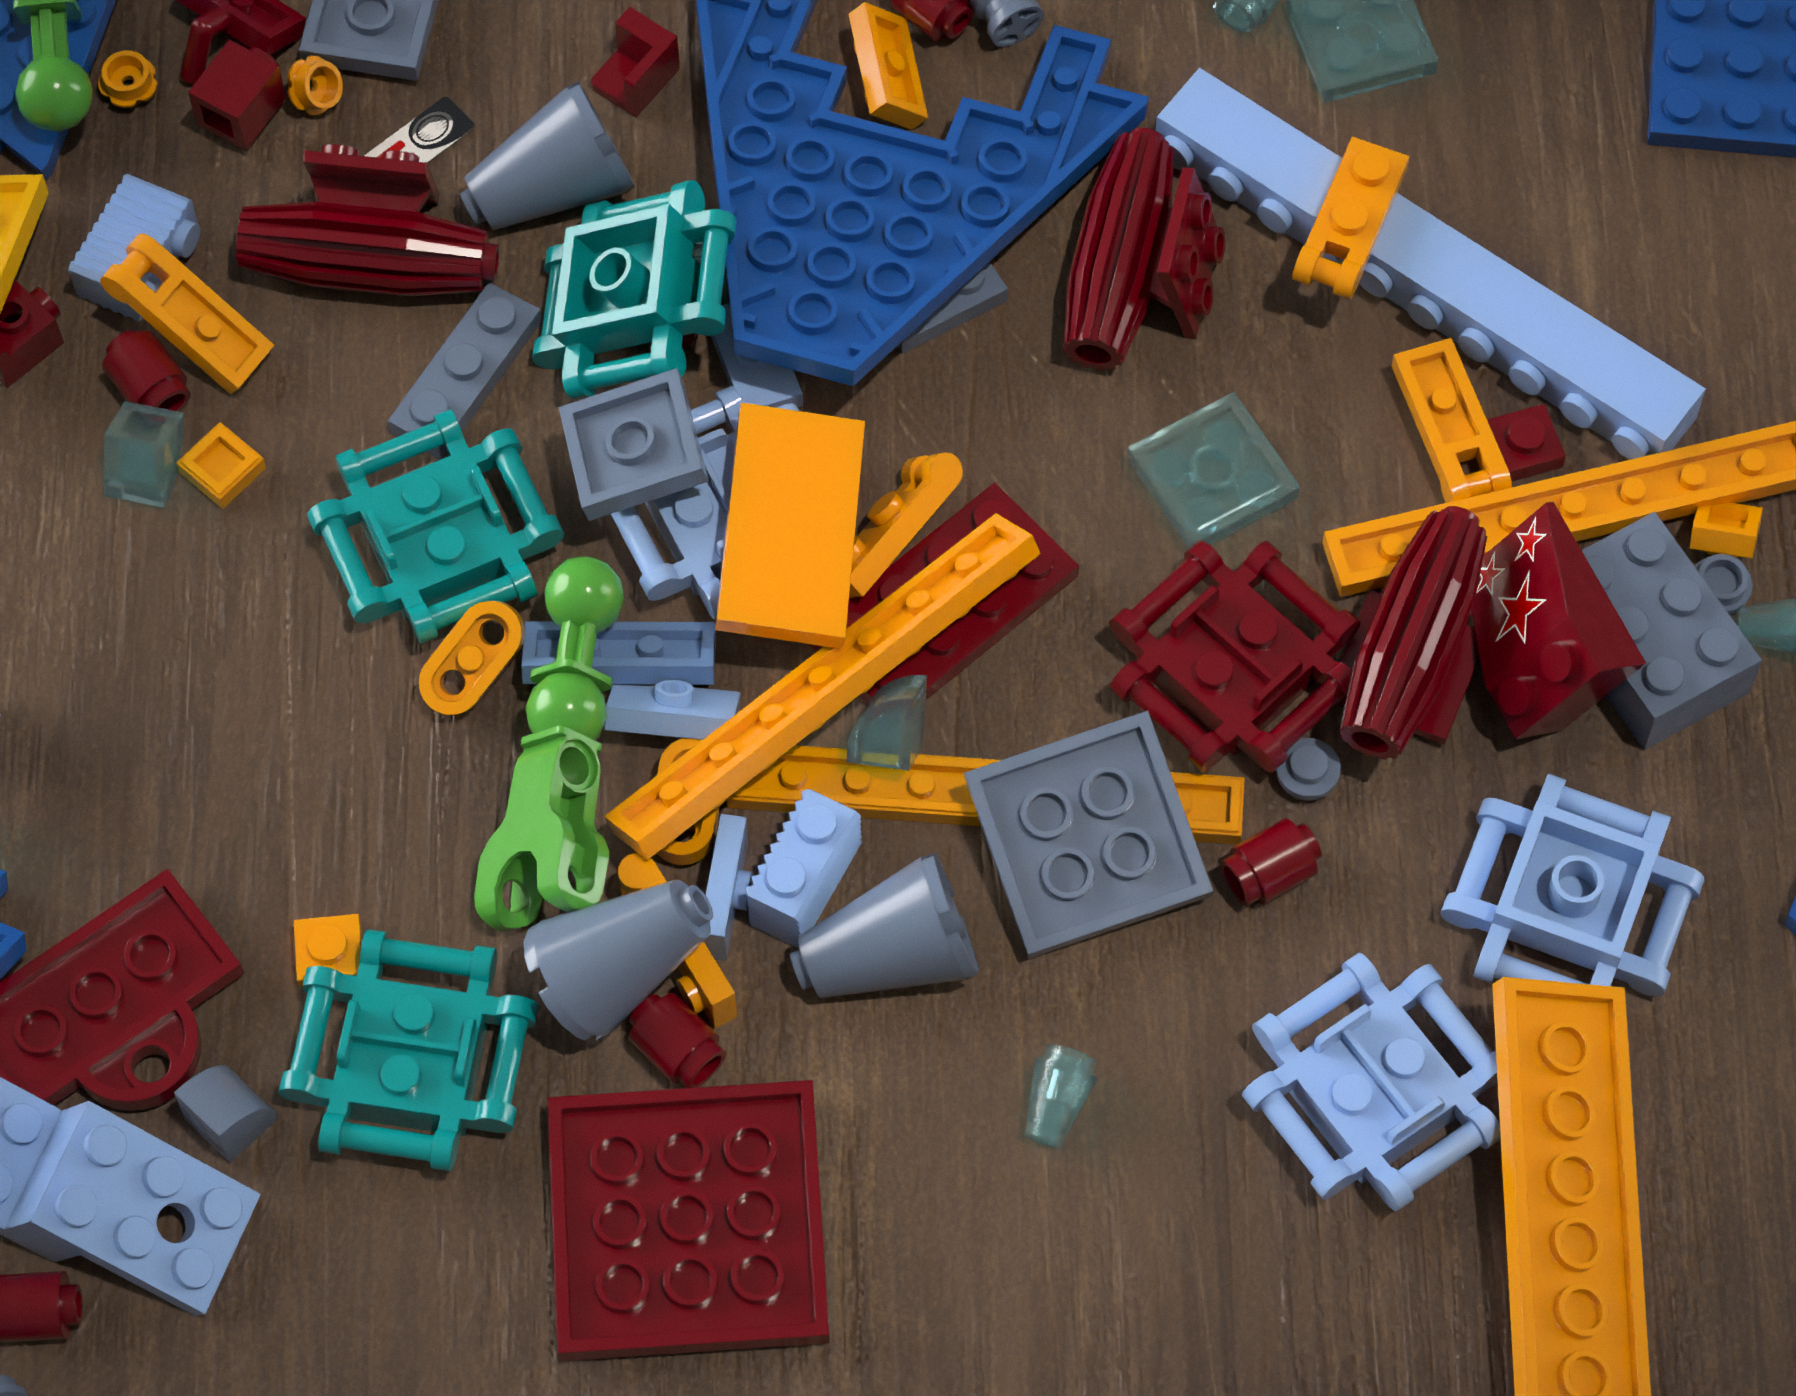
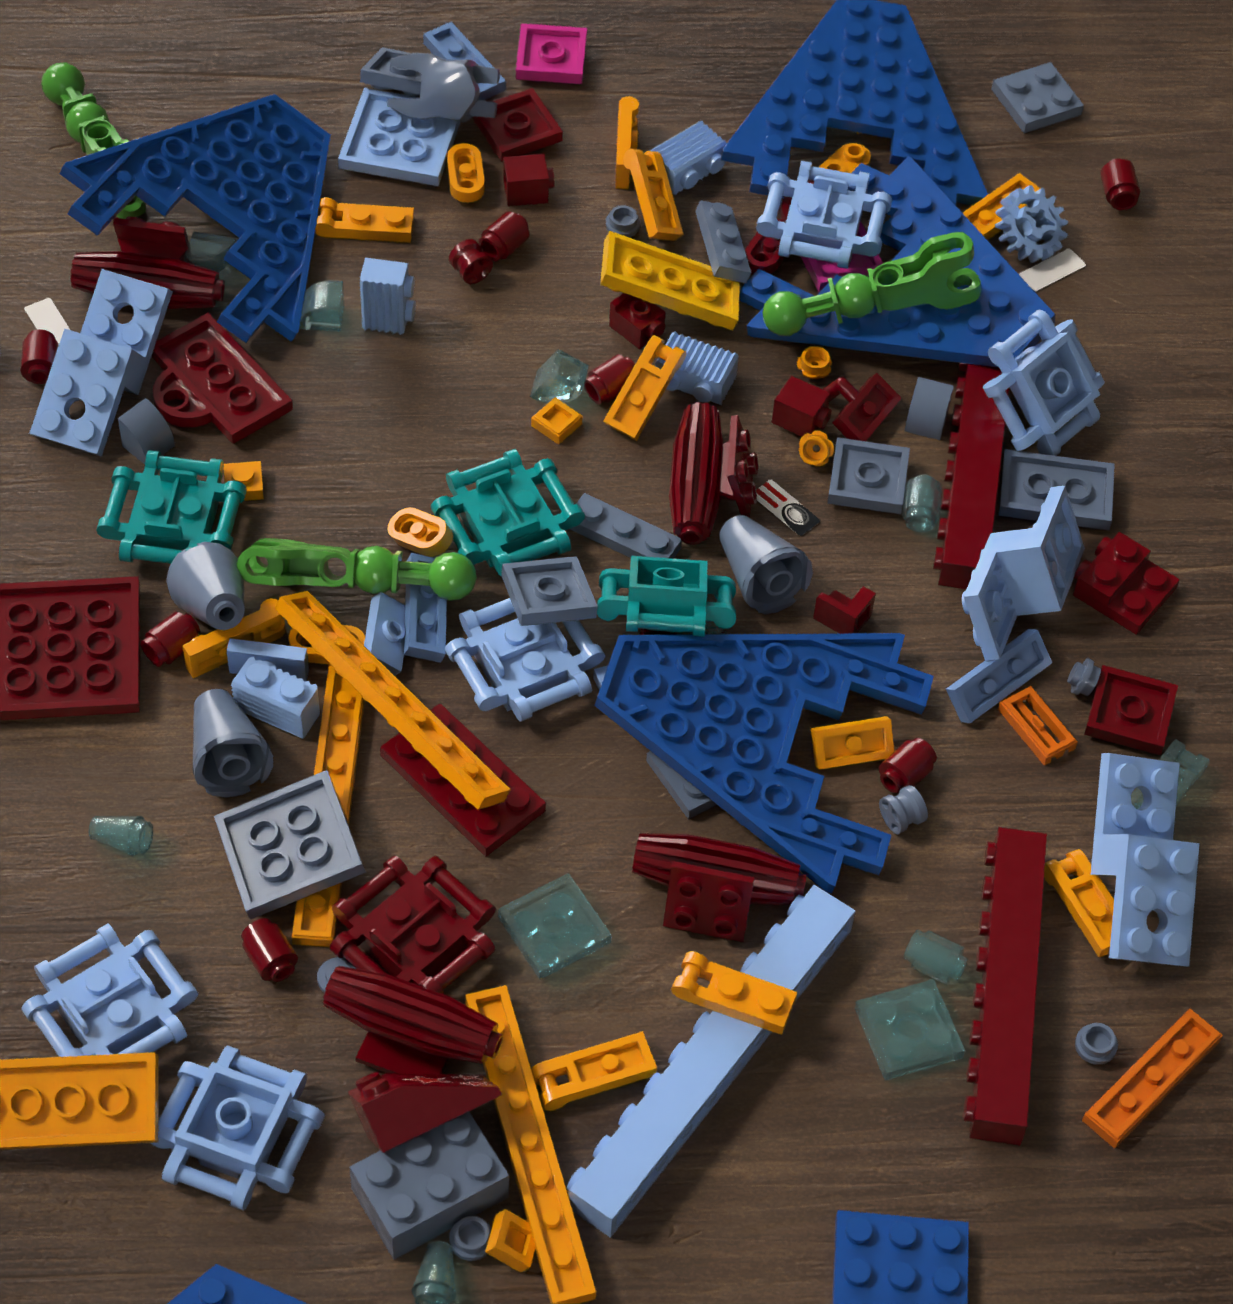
camera: 85 degrees right, 10 degrees down
(790, 526) = (495, 673): light orange tile -> none
(891, 725) = (365, 739): clear light blue brick -> none
(901, 515) = (513, 743): light orange plate -> none
(1528, 442) = (583, 1119): dark red plate -> none

